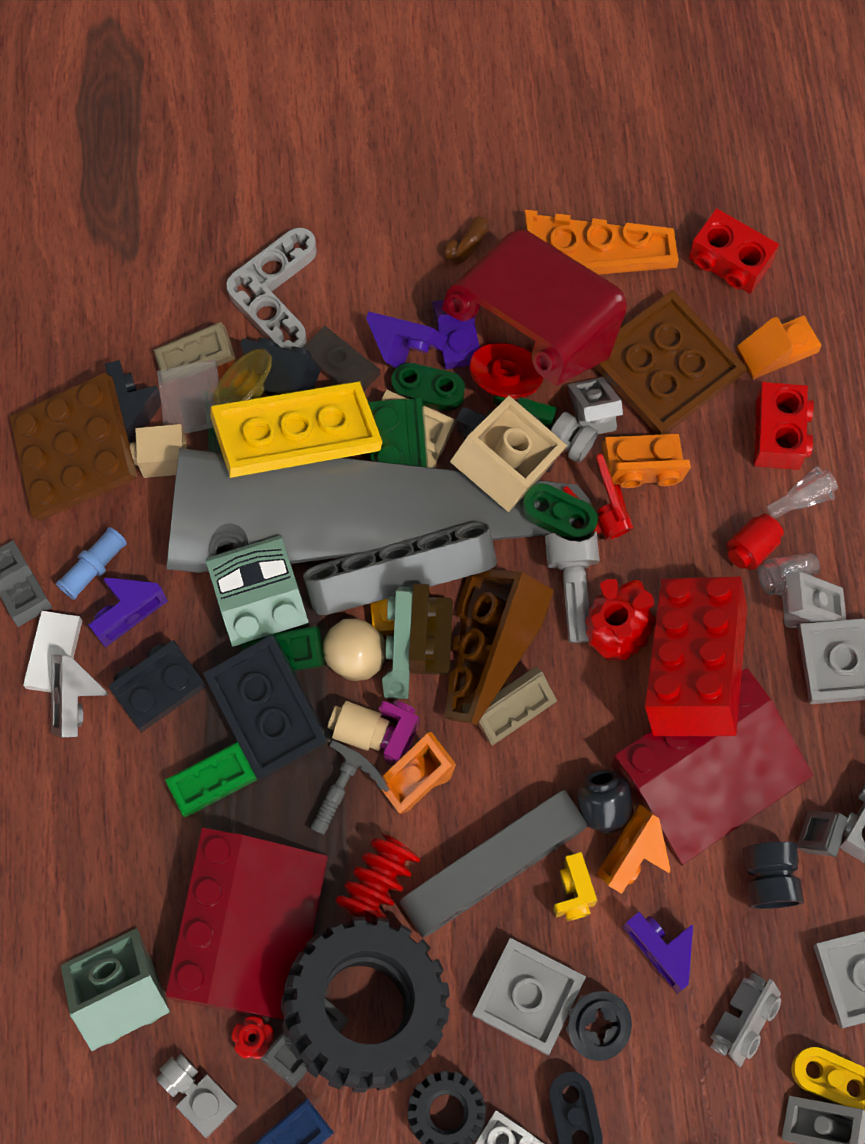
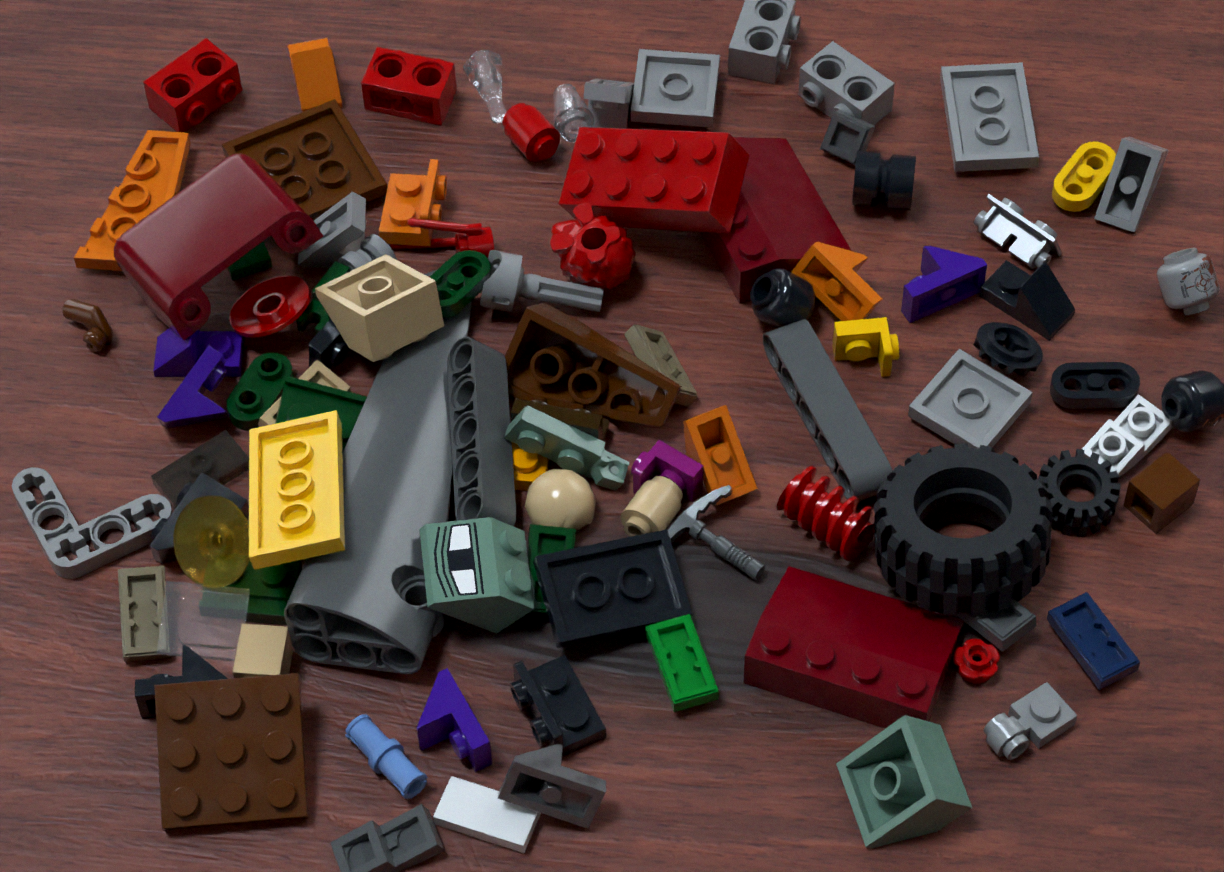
camera: 80 degrees left, 15 degrees down
(670, 1039) = (1030, 299): none -> black slope

